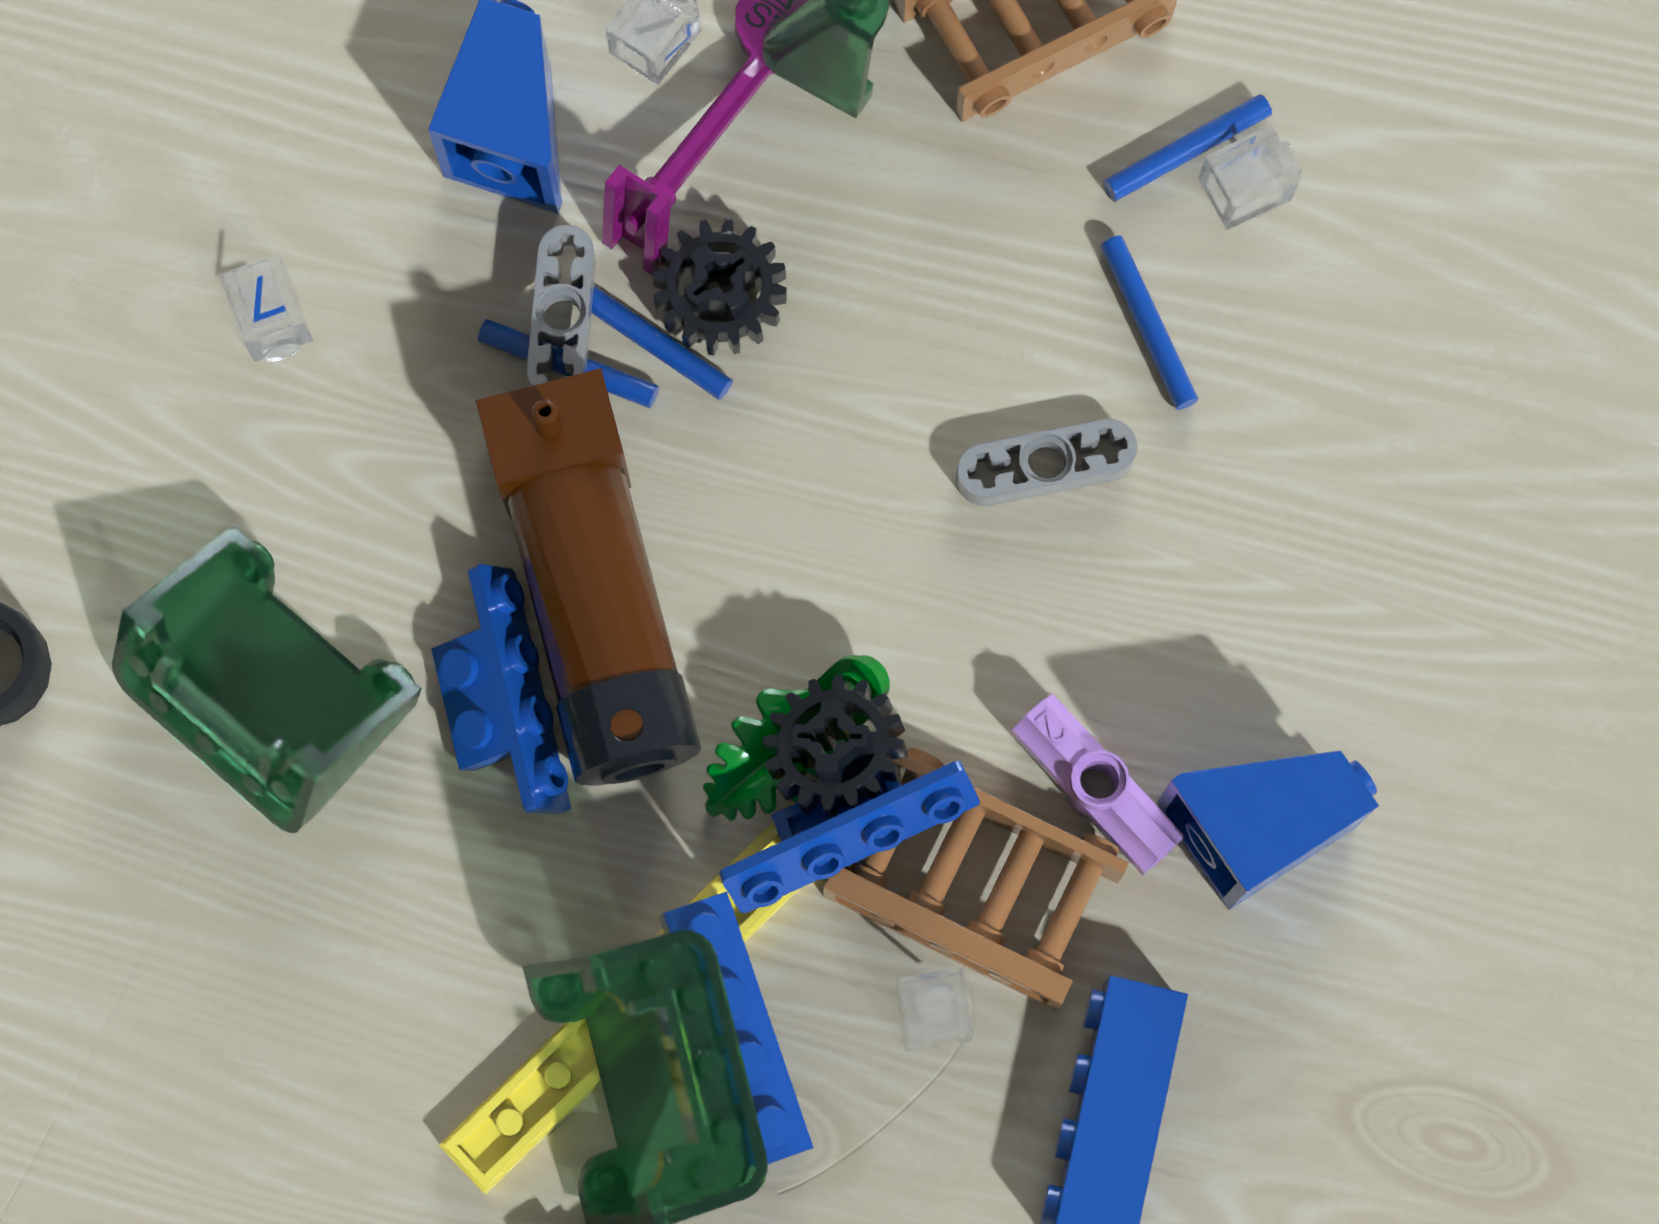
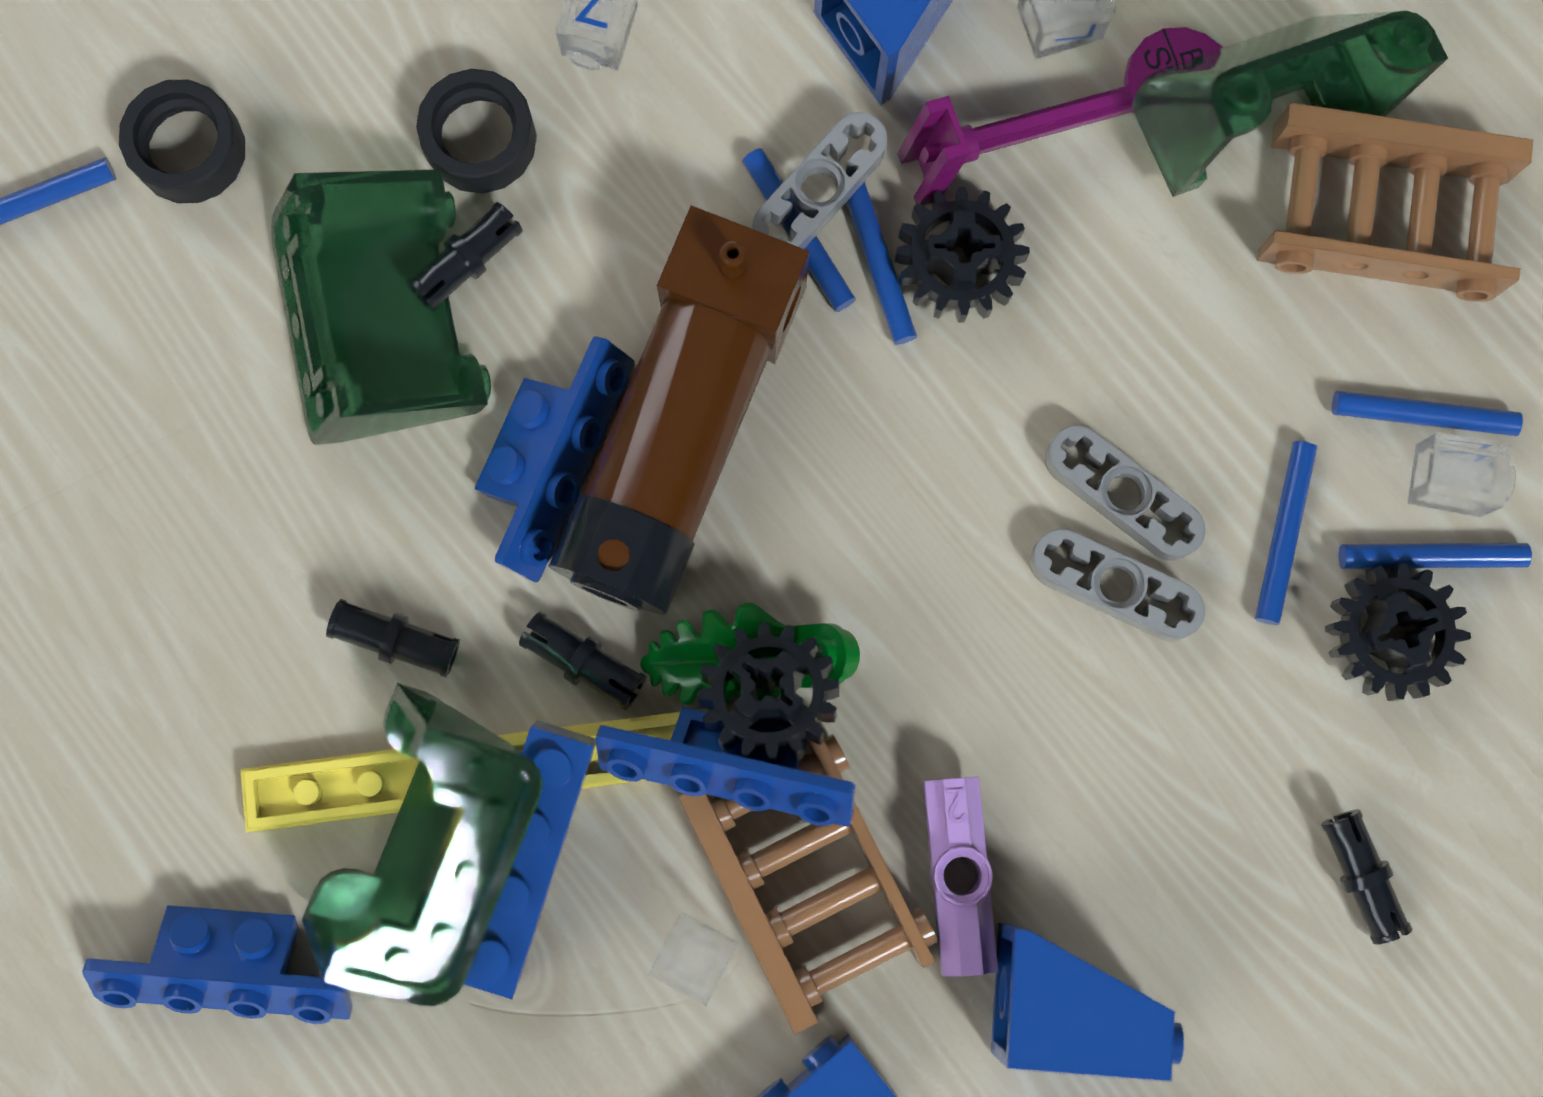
camera: 35 degrees right, 5 degrees up
(209, 435) = (465, 88): none -> black tyre
(304, 585) = (464, 256): none -> black pin
(485, 941) = (392, 638): none -> black pin
(658, 842) = (582, 660): none -> black pin
(951, 366) = (1152, 533): none -> light grey beam
(1278, 256) = (1435, 555): none -> blue bar
(1312, 352) = (1409, 654): none -> black gear
(1415, 546) = (1366, 877): none -> black pin

